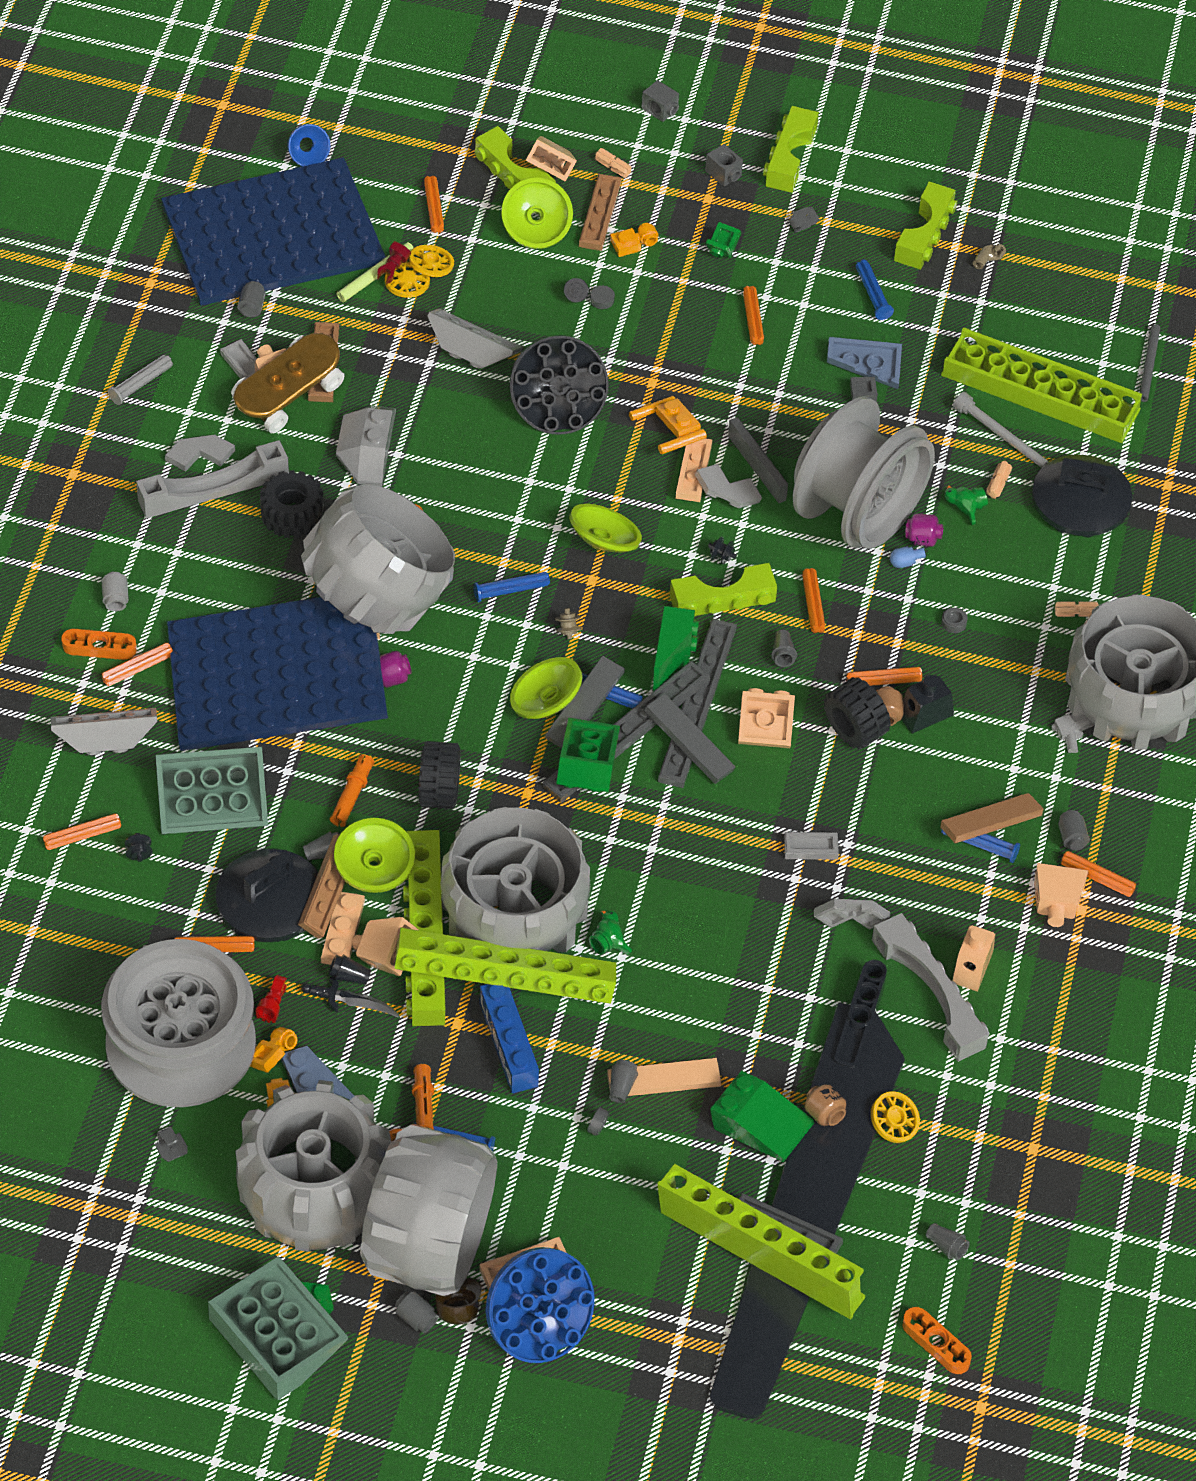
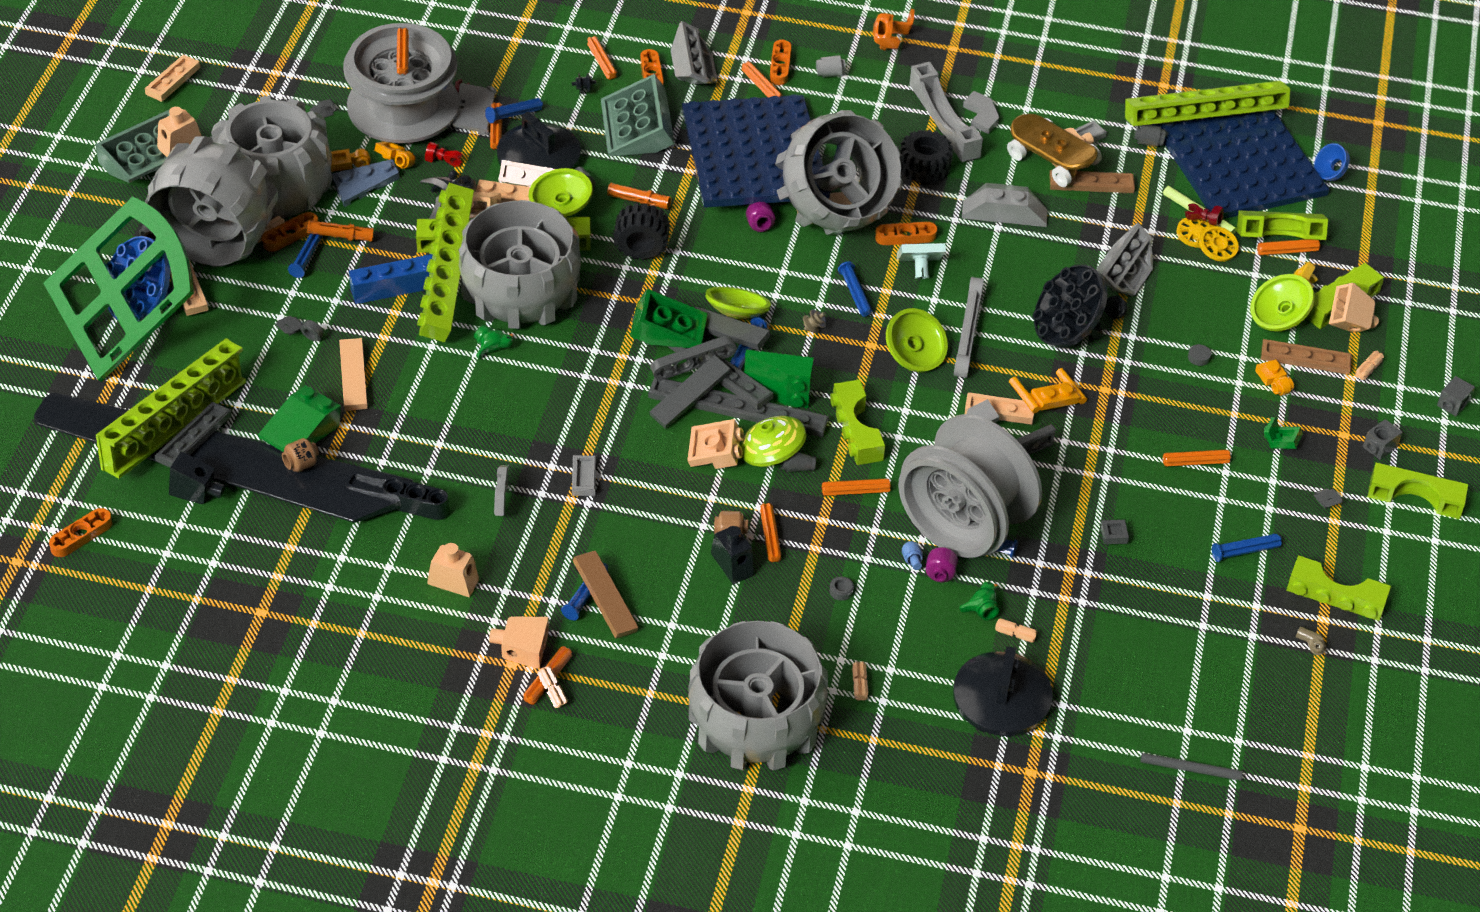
camera: 90 degrees right, 5 degrees down
(48, 536) = (885, 26): none -> orange piece
(104, 786) = (651, 66): none -> orange beam
(108, 1324) = (172, 78): none -> light nougat plate
(139, 379) = (1052, 76): light grey axle -> none
(175, 988) = (402, 51): none -> orange axle
(193, 920) = (514, 109): none -> blue axle
(217, 235) = (1207, 103): none -> lime brick
(277, 1267) = (176, 128): none -> light nougat torso
(341, 984) = (443, 182): none -> piece
(410, 180) = (1282, 223): none -> lime arch
(466, 515) = (921, 255): none -> light aqua tile
(485, 196) = (1306, 272): none -> yellow tile
(568, 1324) = (113, 289): none -> window
(572, 485) = (968, 327): none -> light grey piece
(576, 290) = (1199, 333): black wheel -> none
(583, 1145) = (293, 323): none -> dark grey piece
(622, 1079) = (344, 339): dark grey cone -> none
(646, 729) = (662, 366): none -> dark grey beam
(722, 550) = (904, 423): black wheel -> none
(775, 673) = (773, 440): none -> lime dish
(857, 713) = (710, 492): black tyre -> none
(865, 1210) = (193, 480): none -> black torso
(867, 358) = (1154, 538): sand blue wing -> none
(895, 1117) = (295, 512): yellow wheel -> none
(899, 941) = (382, 562): light grey arch -> none
(948, 1241) = (169, 543): dark grey cone -> none
(965, 404) = (1108, 608): light grey piece -> none
(1042, 389) = (1138, 672): lime tile -> none
(1073, 830) = (593, 656): dark grey brick -> none
(1120, 864) = (555, 692): none -> light nougat piece

